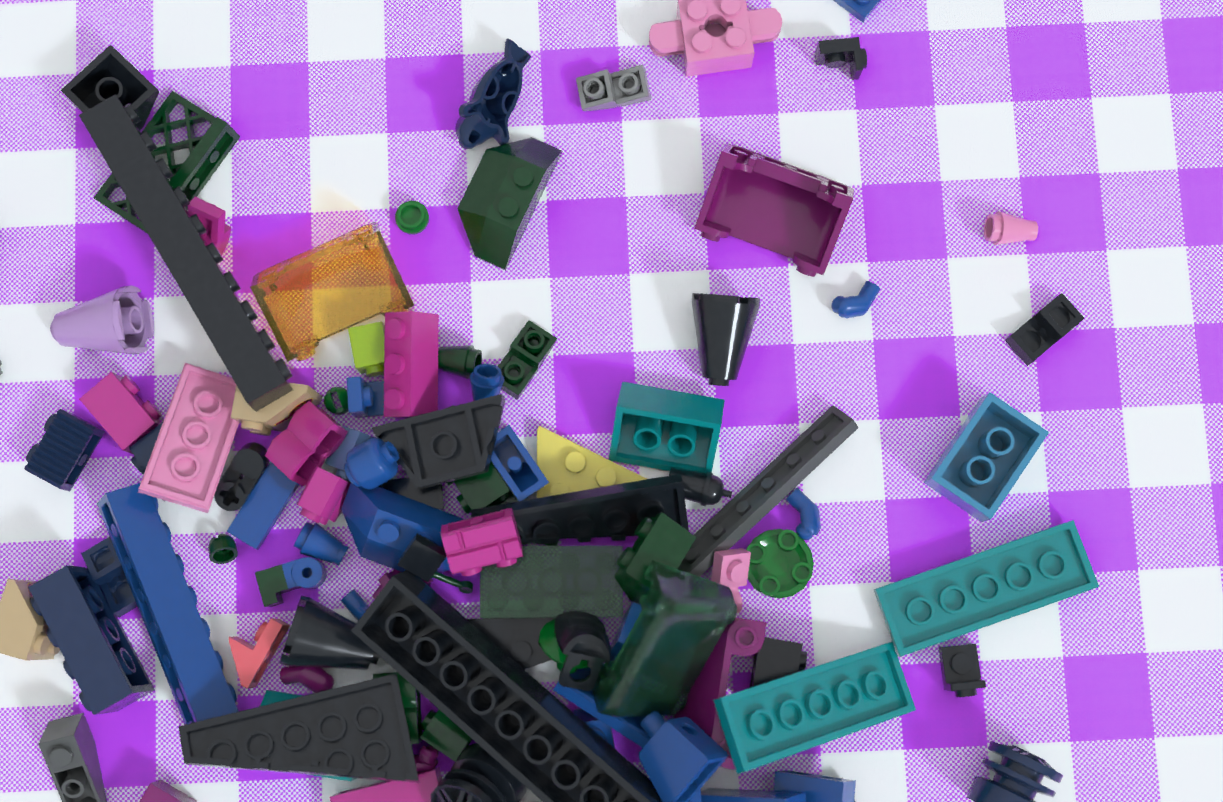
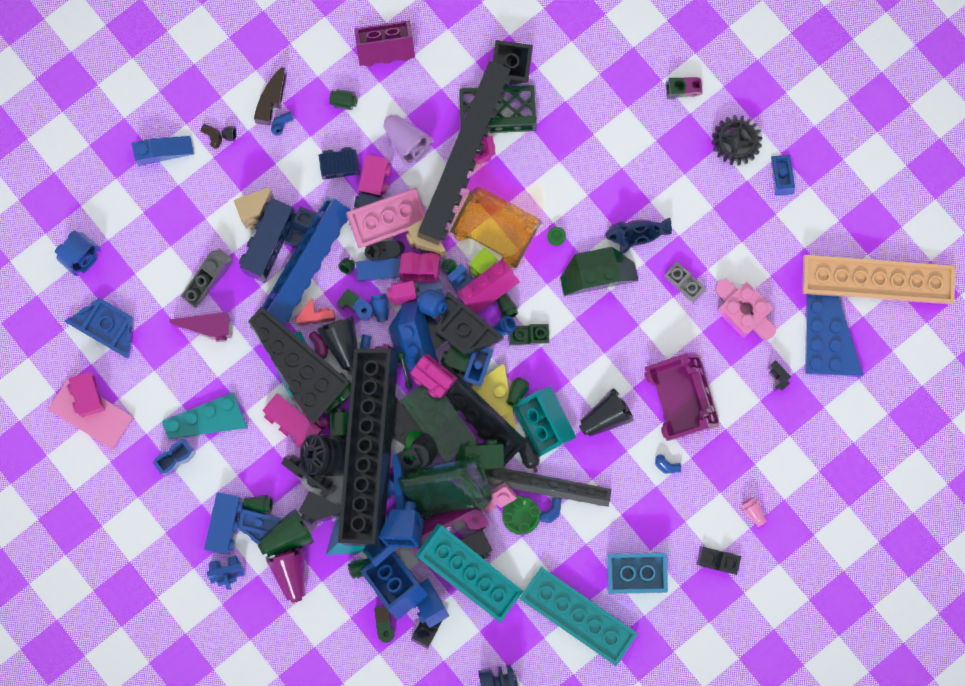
camera: 50 degrees right, 0 degrees up
(422, 557) = (407, 355): black tile -> none
(593, 434) = (518, 389): none -> dark green cone
(961, 669) = (533, 630): black bracket -> none

